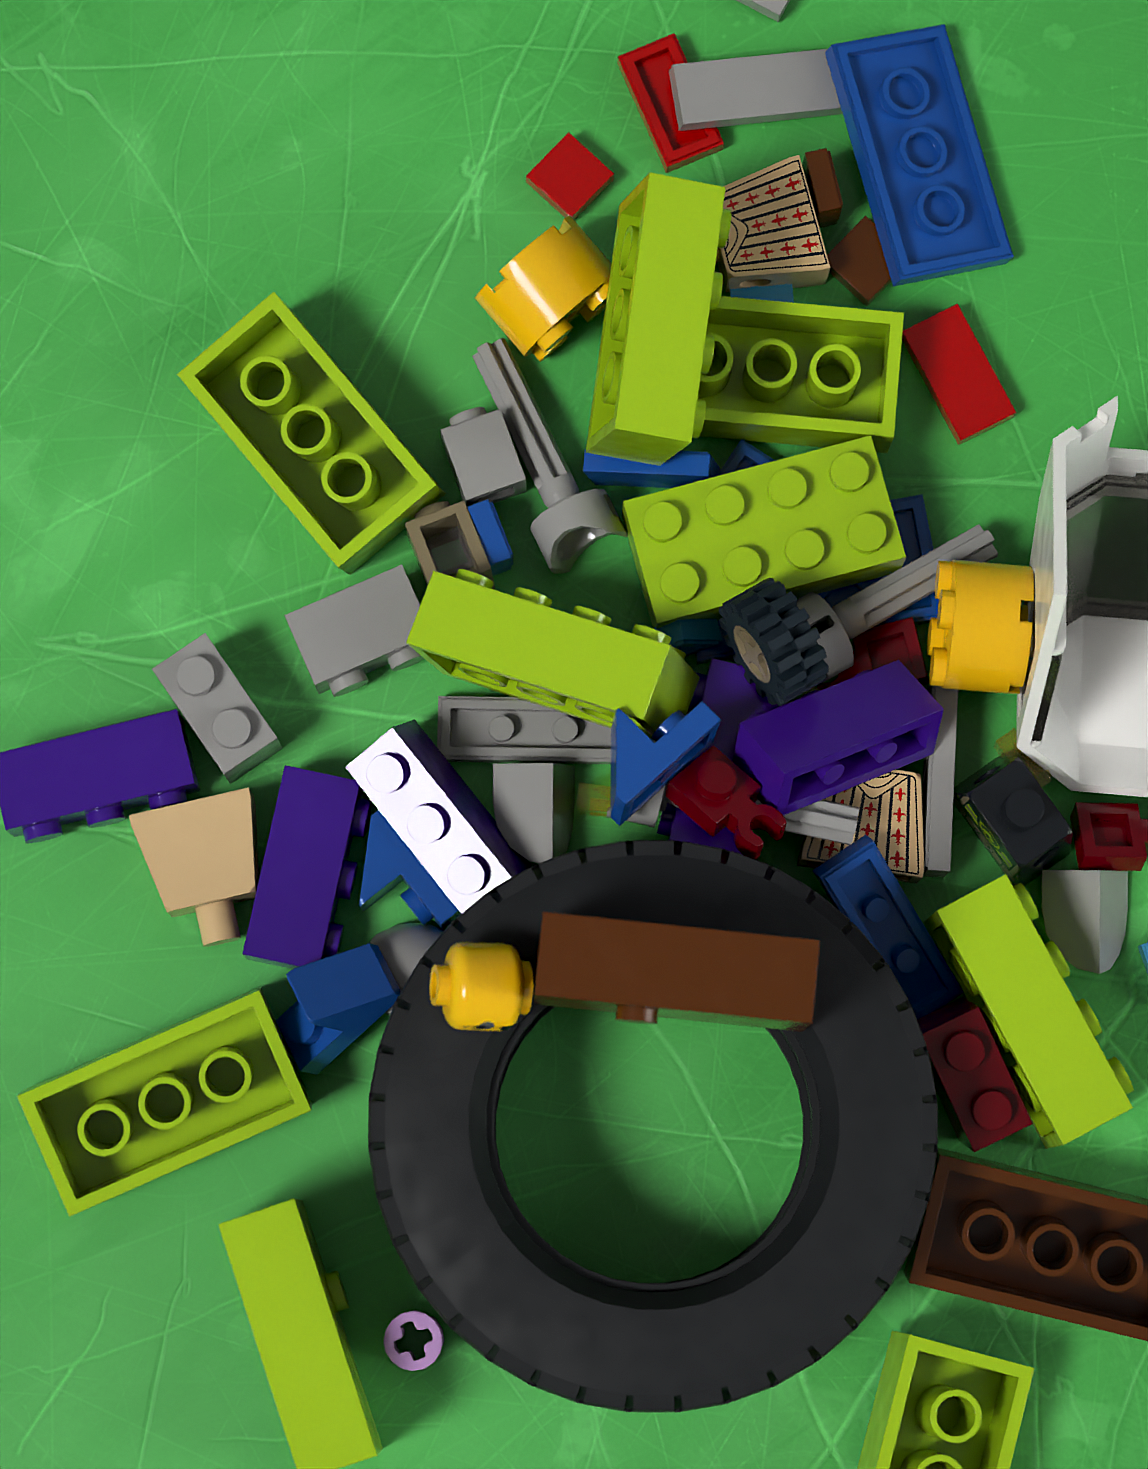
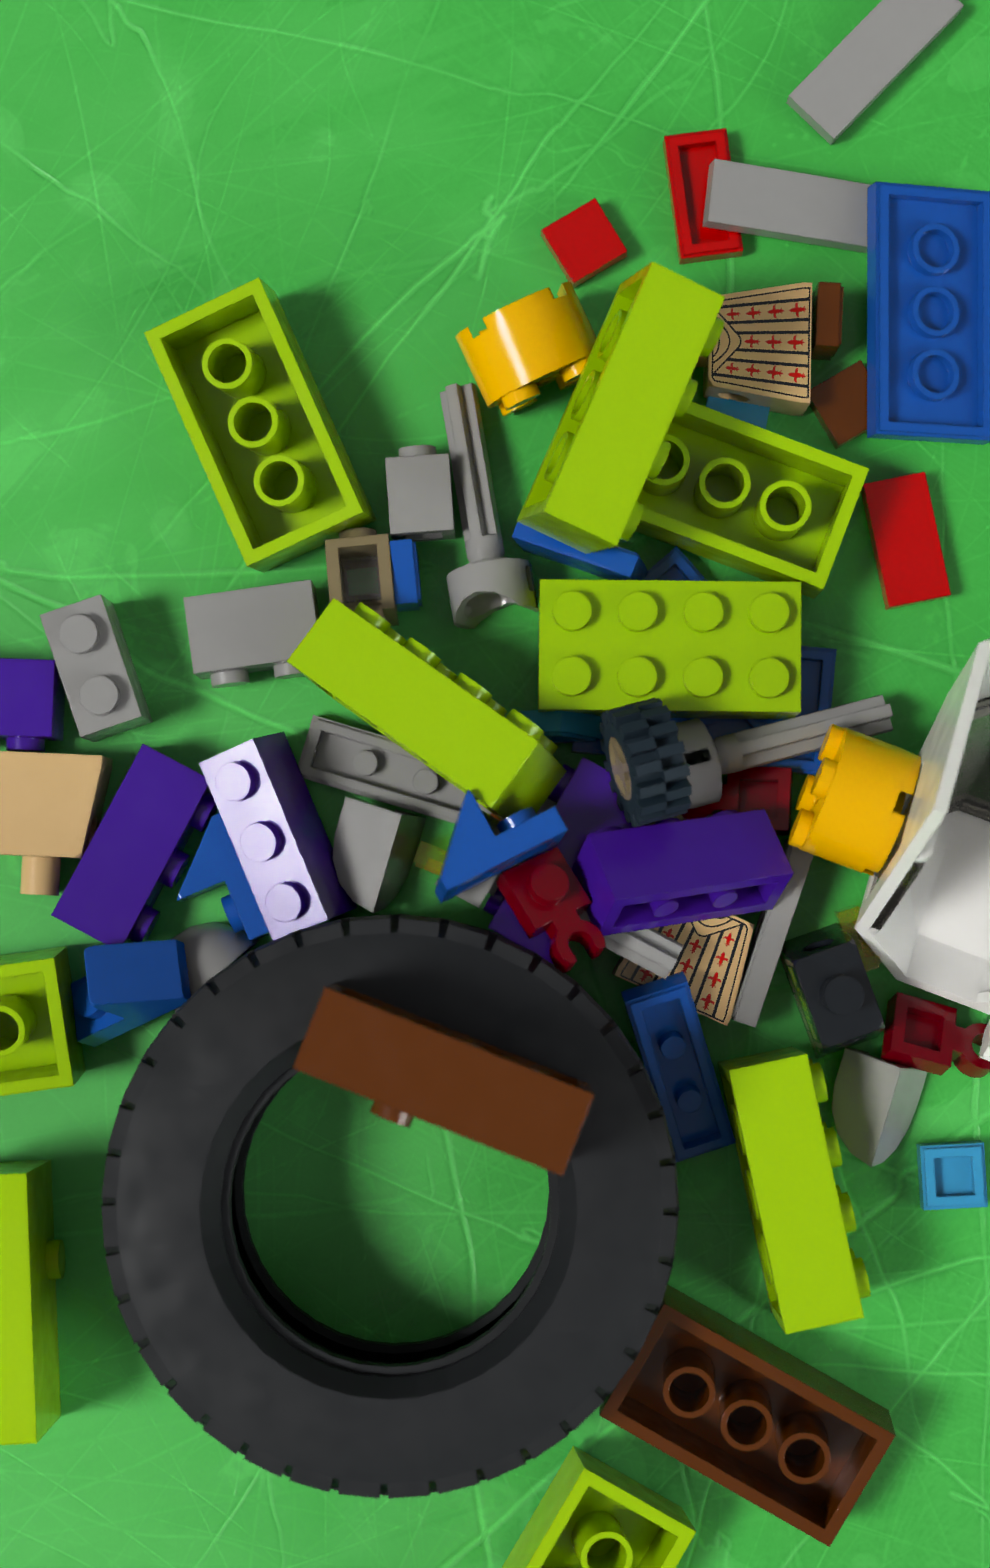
camera: 25 degrees right, 5 degrees up
(406, 1359) = (102, 1342): lavender bush -> none
(482, 986) = (254, 1031): yellow head -> none
(971, 1075) = (717, 1228): dark red brick -> none

